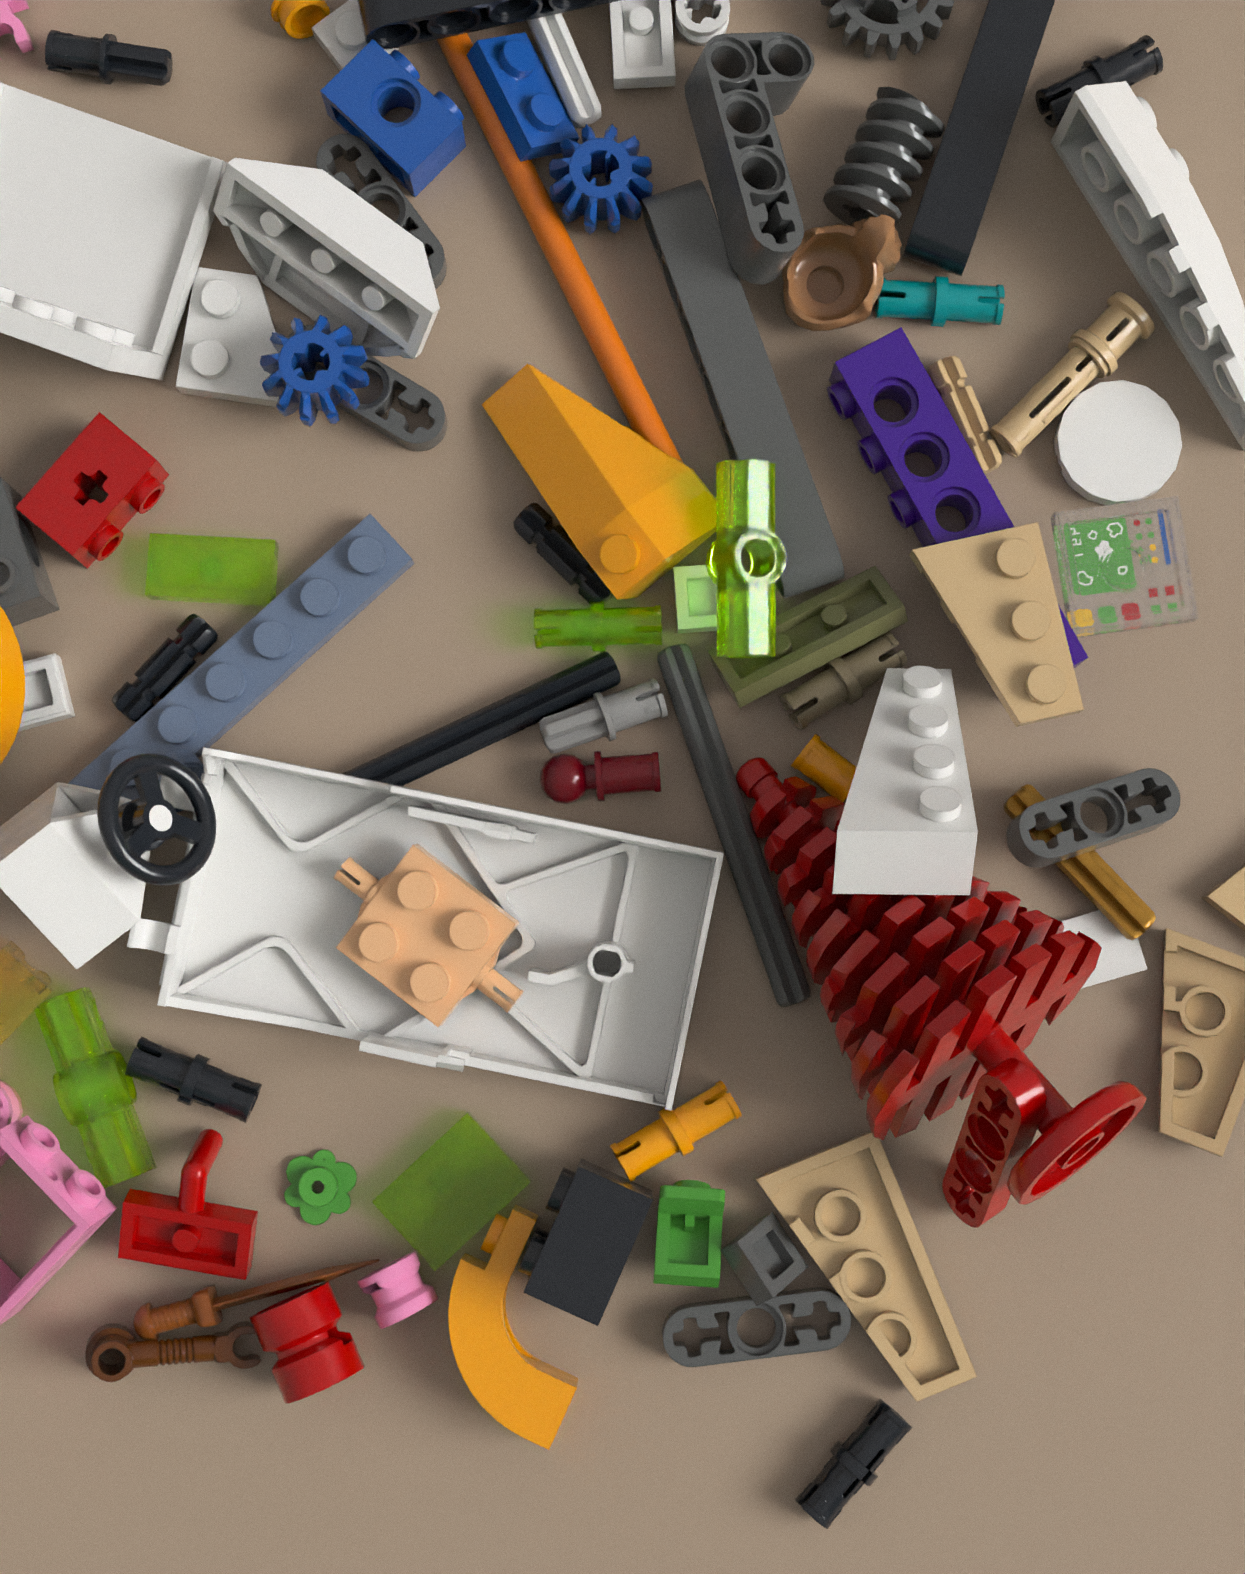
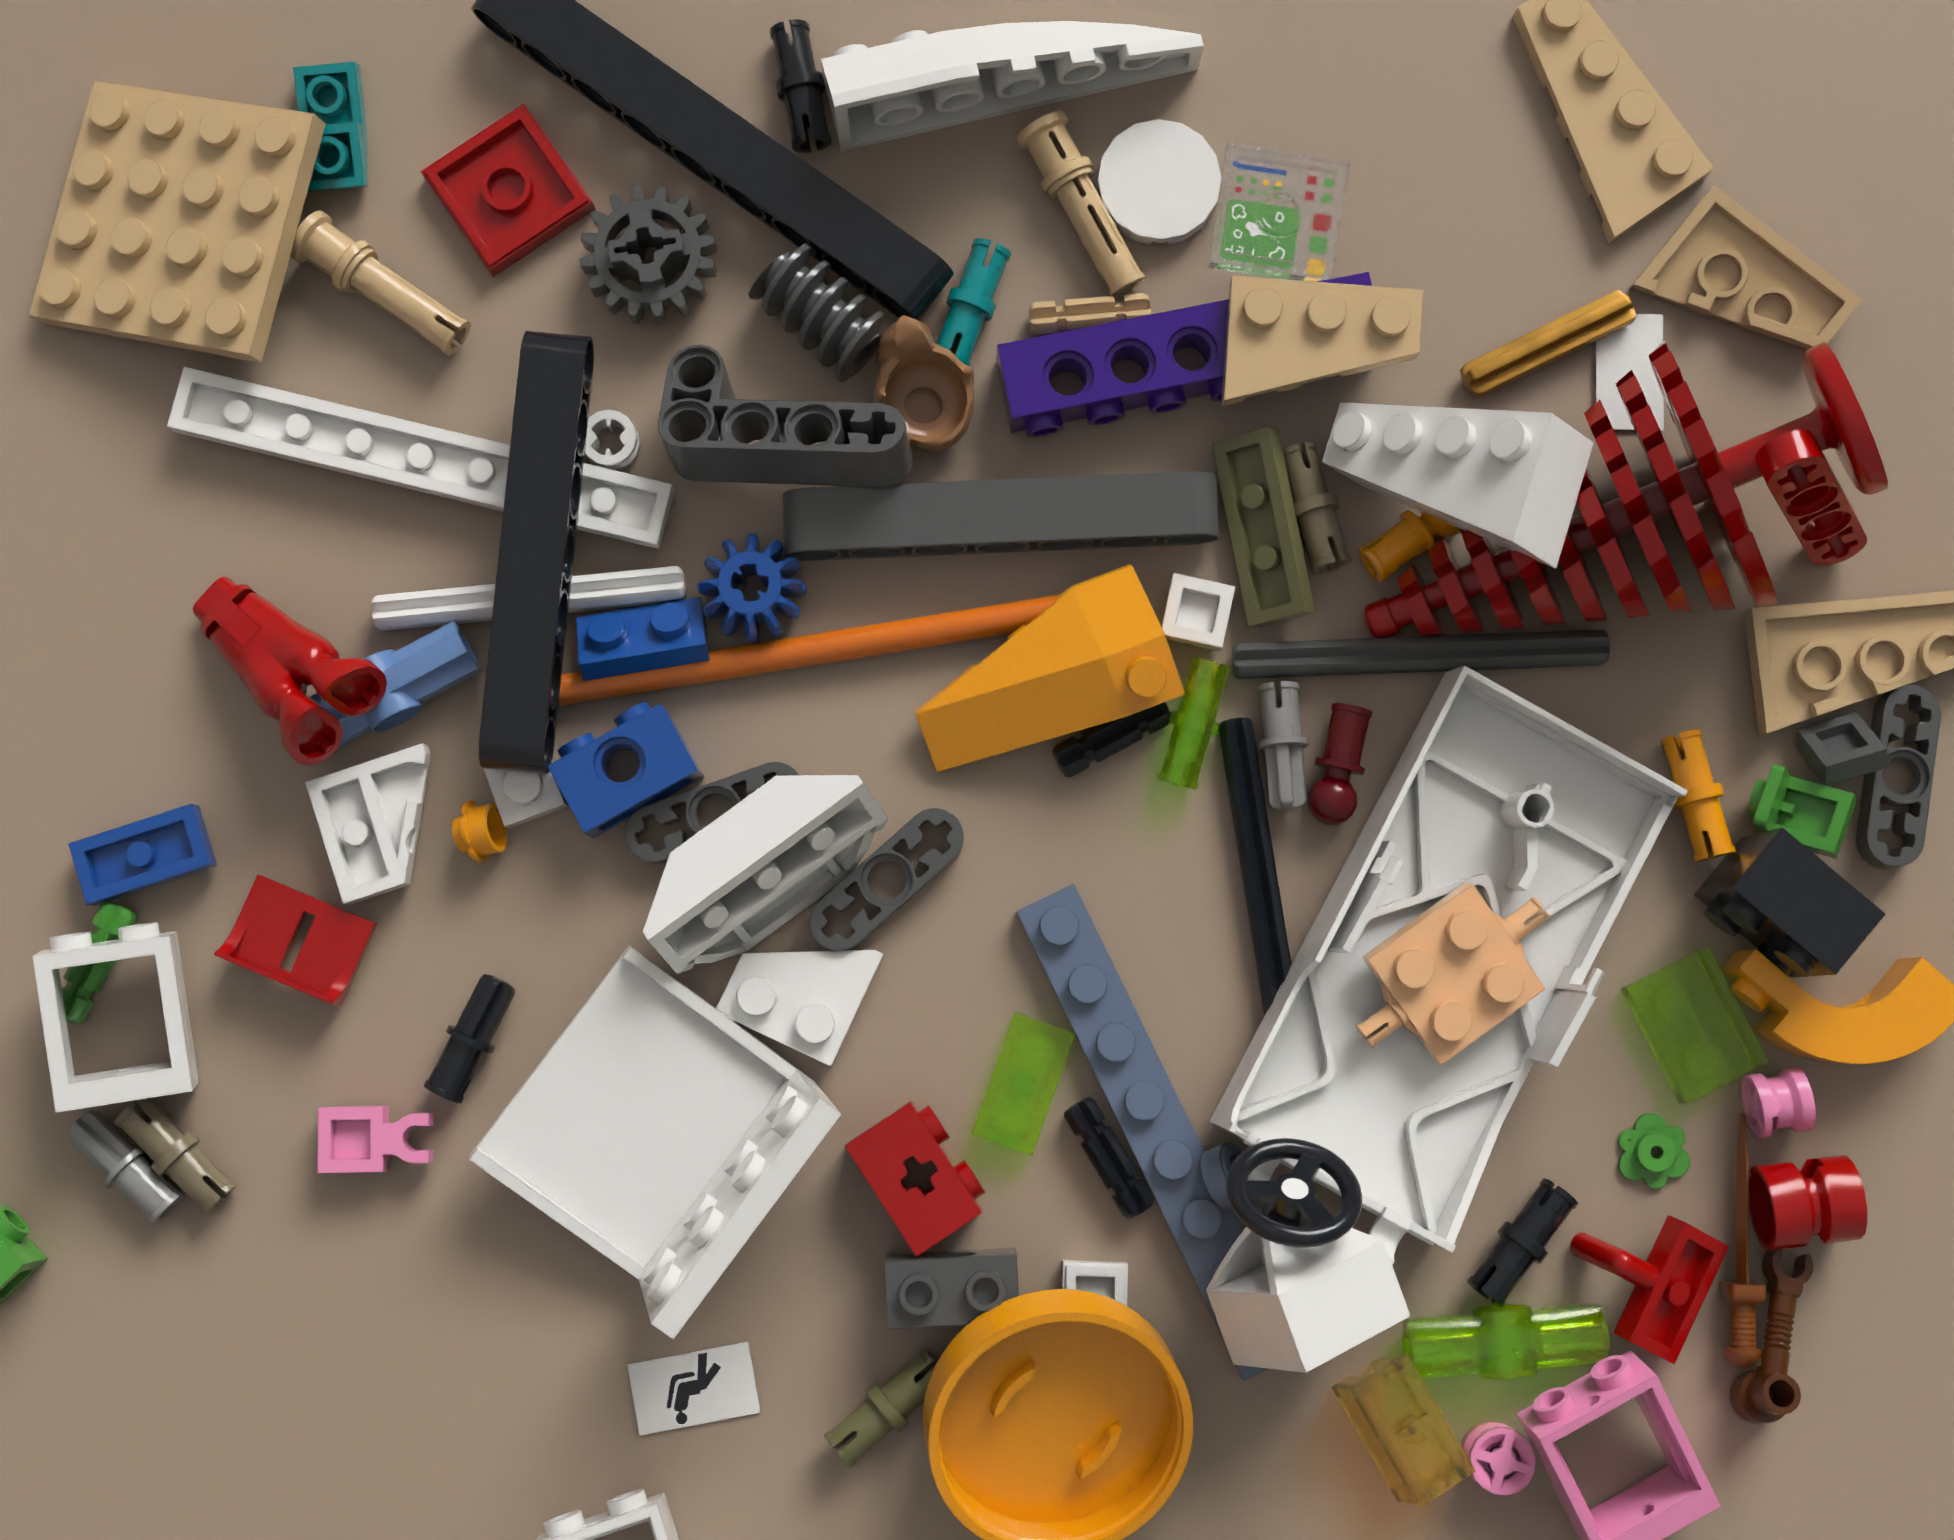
camera: 75 degrees left, 0 degrees up
(329, 385) = (848, 928): blue gear -> none
(746, 520) = (1185, 559): clear neon green piece -> none
(1079, 839) = (1505, 339): dark grey beam -> none

